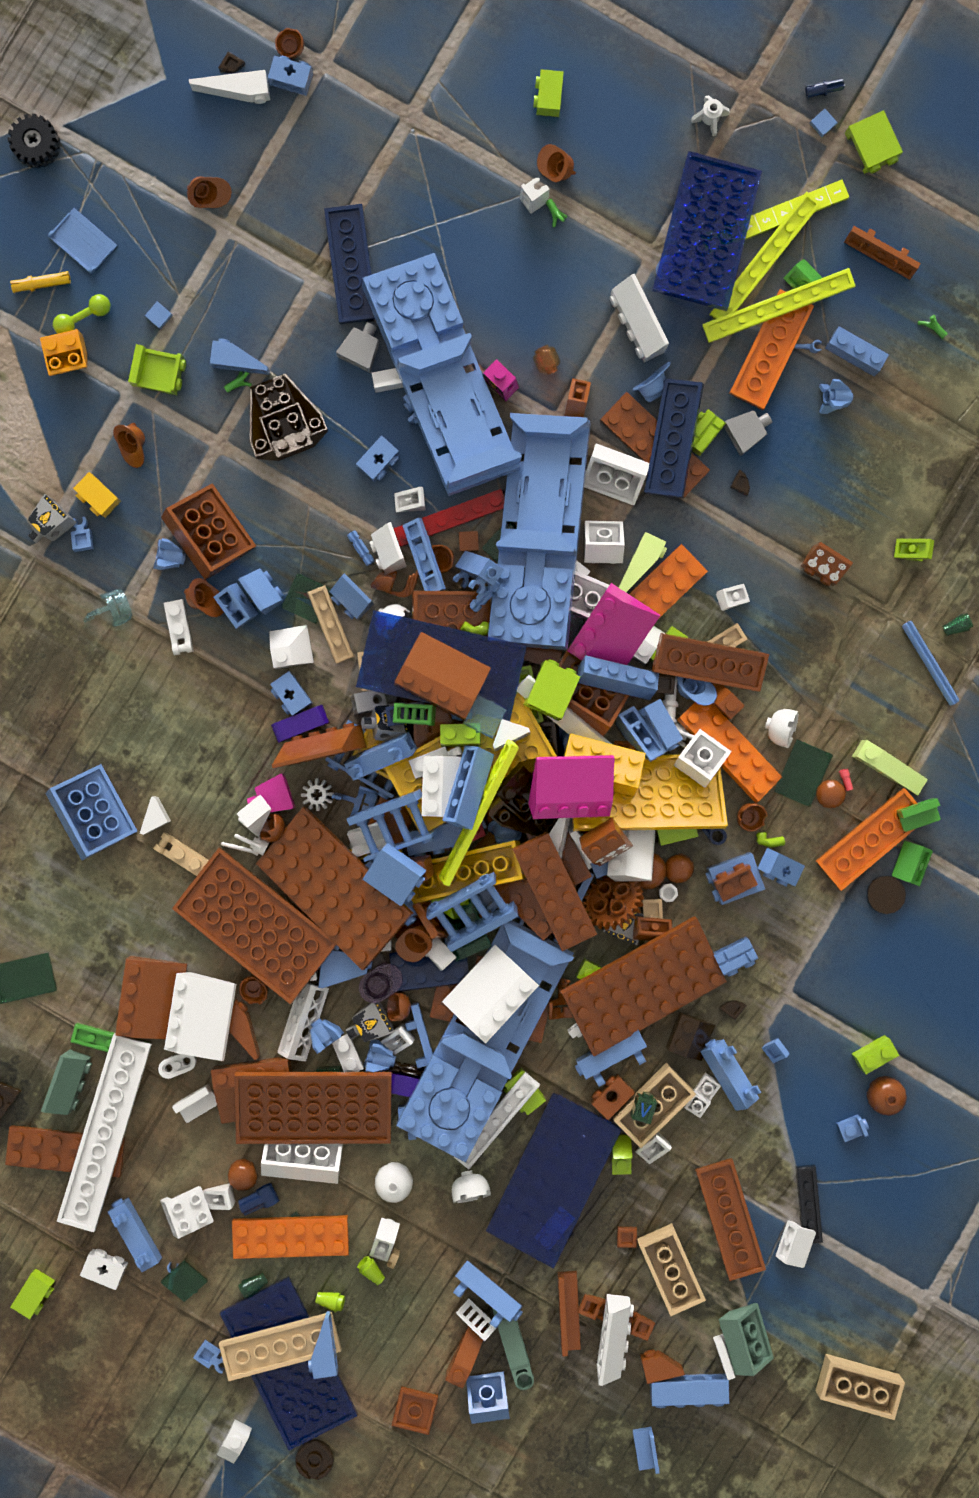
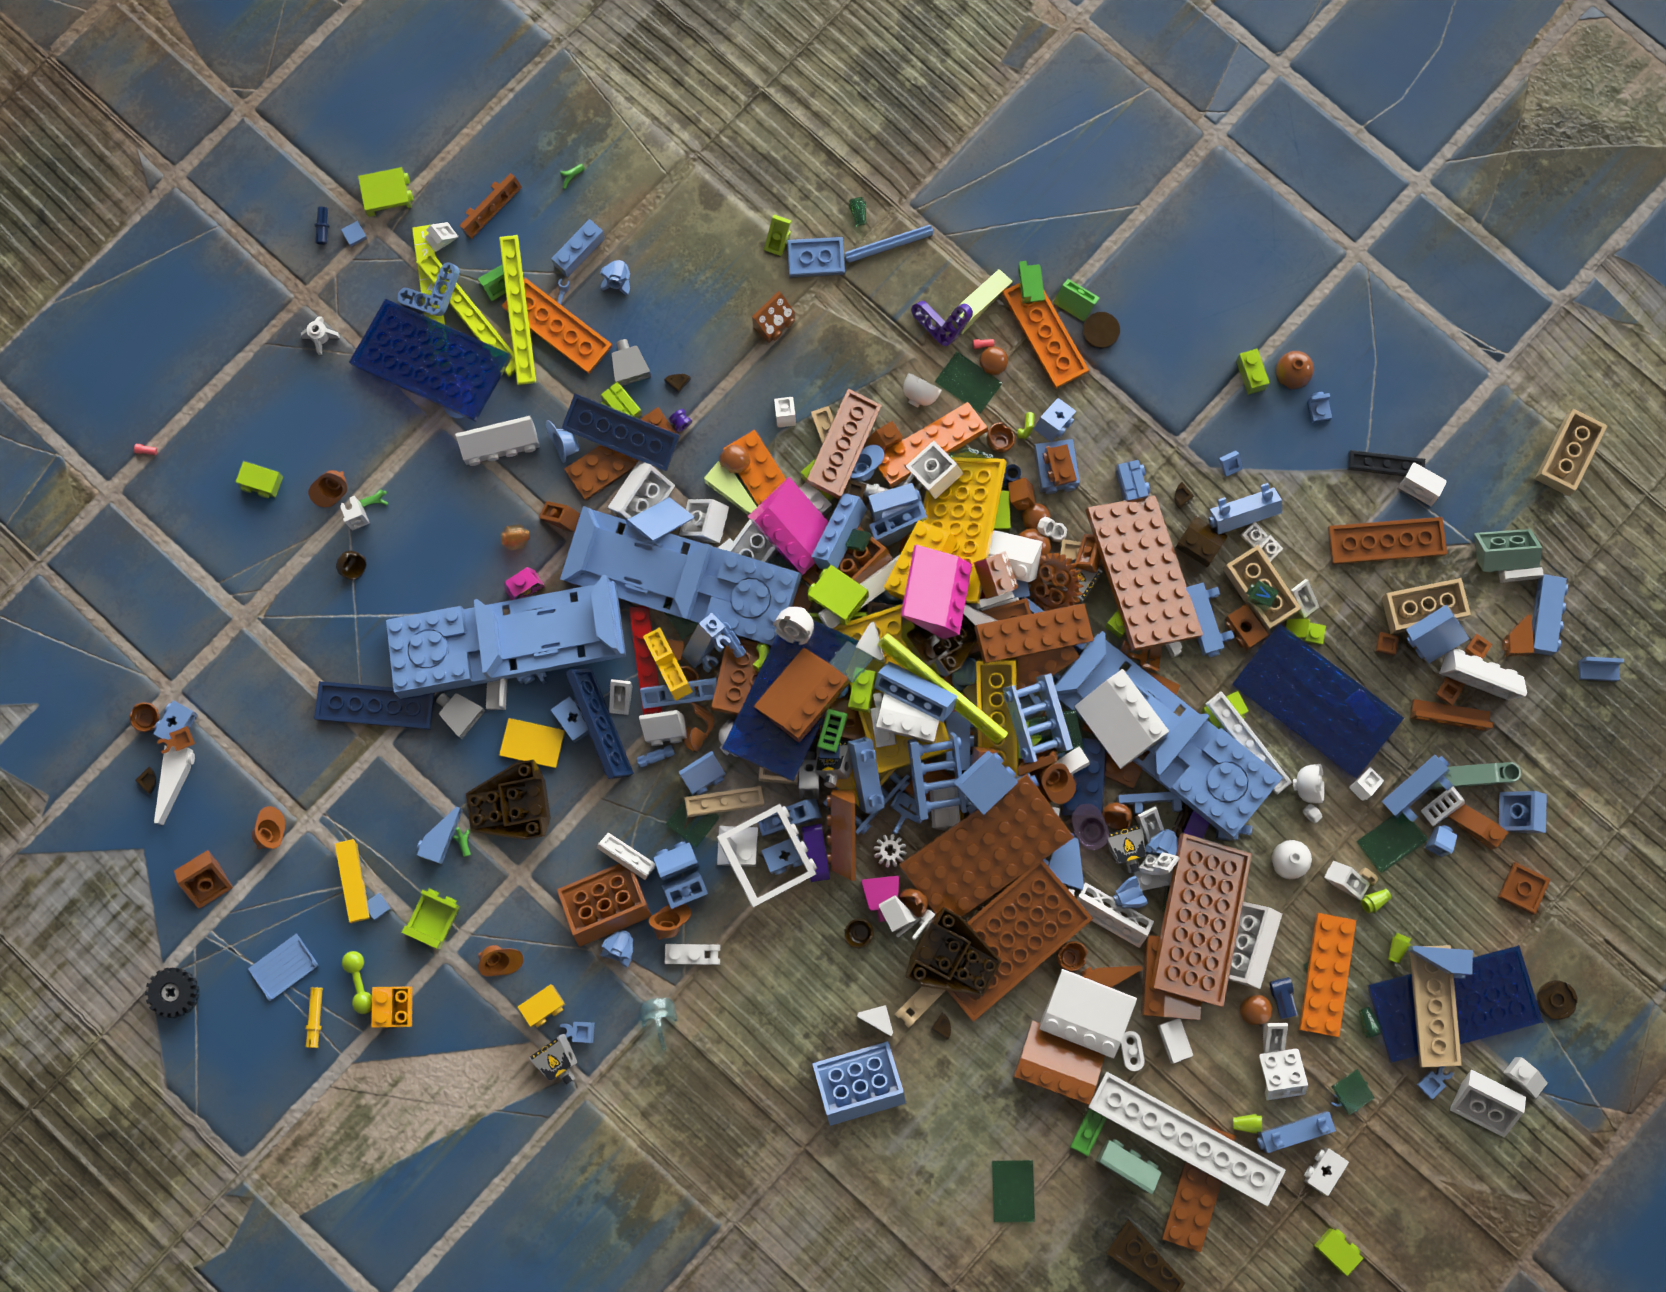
camera: 75 degrees left, 10 degrees down
(133, 1187) = (1248, 1123): none -> lime cone
(146, 141) = (202, 879): none -> dark orange slope
(162, 880) = (943, 1026): none -> dark brown tile
(176, 284) = (352, 880): none -> yellow slope
(201, 1411) = (1488, 1103): none -> white slope
(224, 875) = (952, 957): none -> dark brown wedge
(230, 781) = (859, 933): none -> dark brown hair
(257, 542) = (626, 856): none -> white tile
(272, 80) = (179, 739): none -> dark orange plate
(311, 696) = (792, 832): none -> white window
(328, 690) = (799, 814): none -> medium blue slope
(347, 425) = (532, 741): none -> yellow tile
(357, 1056) = (1158, 864): none -> white slope
(378, 486) = (599, 722): none -> dark blue plate
(432, 1275) = (1391, 841): none -> clear green piece
(441, 1325) = (1441, 841): none -> medium blue slope
(442, 1194) = (1312, 813): none -> white tile
(449, 538) = (667, 664): none -> yellow slope
(482, 1242) = (1366, 784): none -> white slope
(483, 205) = (351, 564): none -> dark brown hair
(510, 654) = (794, 624): none -> white cylinder
(593, 498) = (660, 519): none -> piece
(613, 698) = (858, 540): none -> clear green tile
(643, 1286) = (1436, 634): none -> medium blue brick
(669, 880) = (1046, 526): none -> white tile
(671, 558) = (735, 459): none -> dark orange hair
(698, 849) = (1021, 494): none -> dark orange brick
(700, 495) = (680, 420): none -> dark purple wheel
(727, 791) = (970, 453): none -> piece
(772, 221) = (436, 297): none -> medium blue beam
(839, 209) = (440, 235): none -> white slope
(853, 735) = (942, 327): none -> dark purple beam
(900, 592) = (816, 257): none -> medium blue tile

